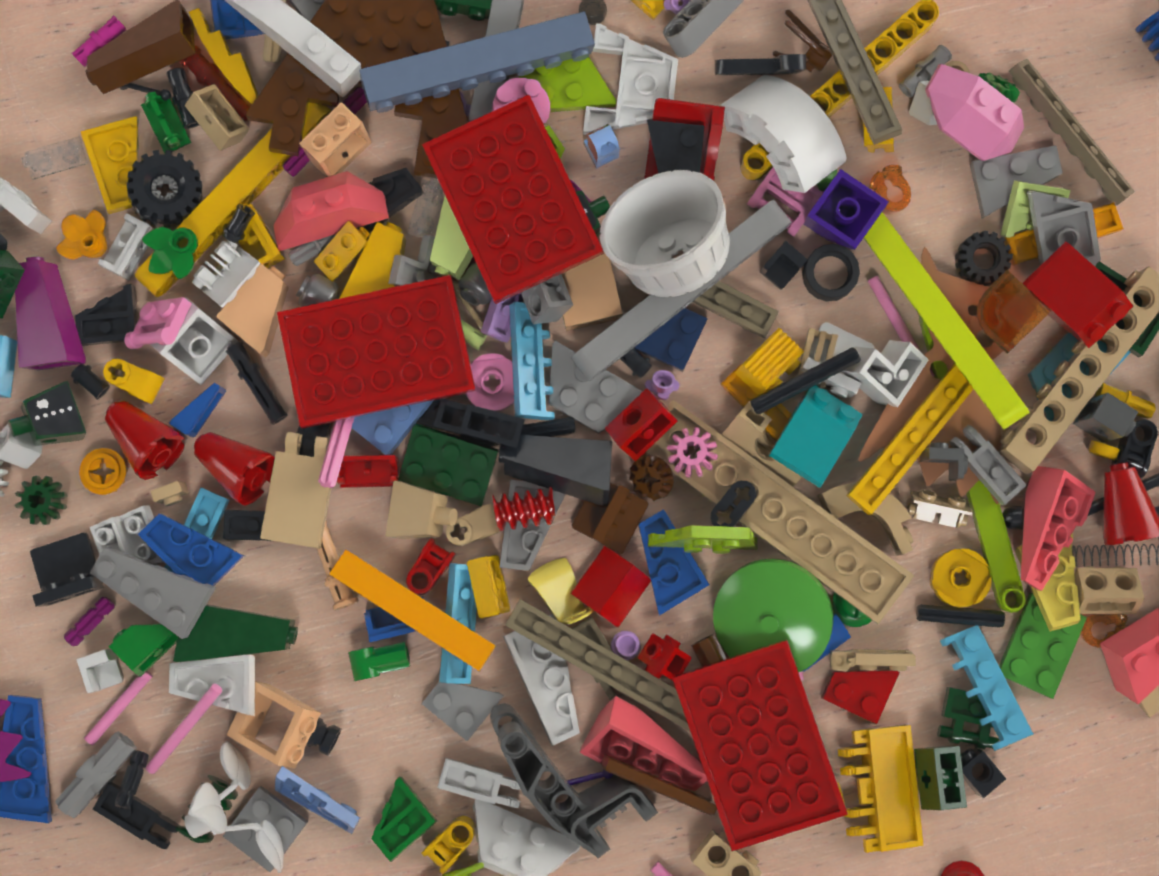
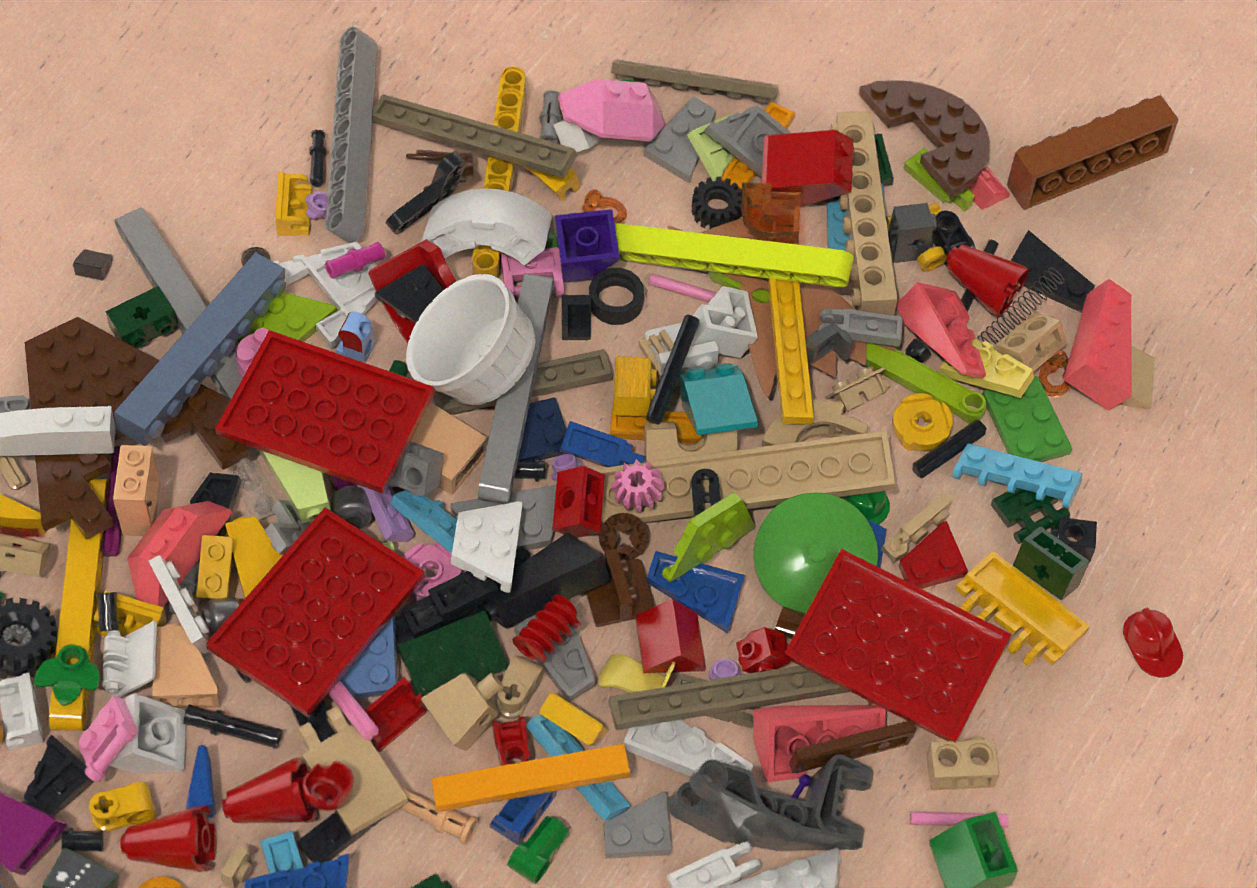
camera: 45 degrees left, 25 degrees down
(264, 497) = (328, 786): none -> red hair
(282, 268) = (181, 602): none -> white wing
(541, 404) = (488, 542): none -> white wing
(659, 77) = (355, 260): none -> dark pink pin
(699, 391) = (598, 446): none -> blue hinge

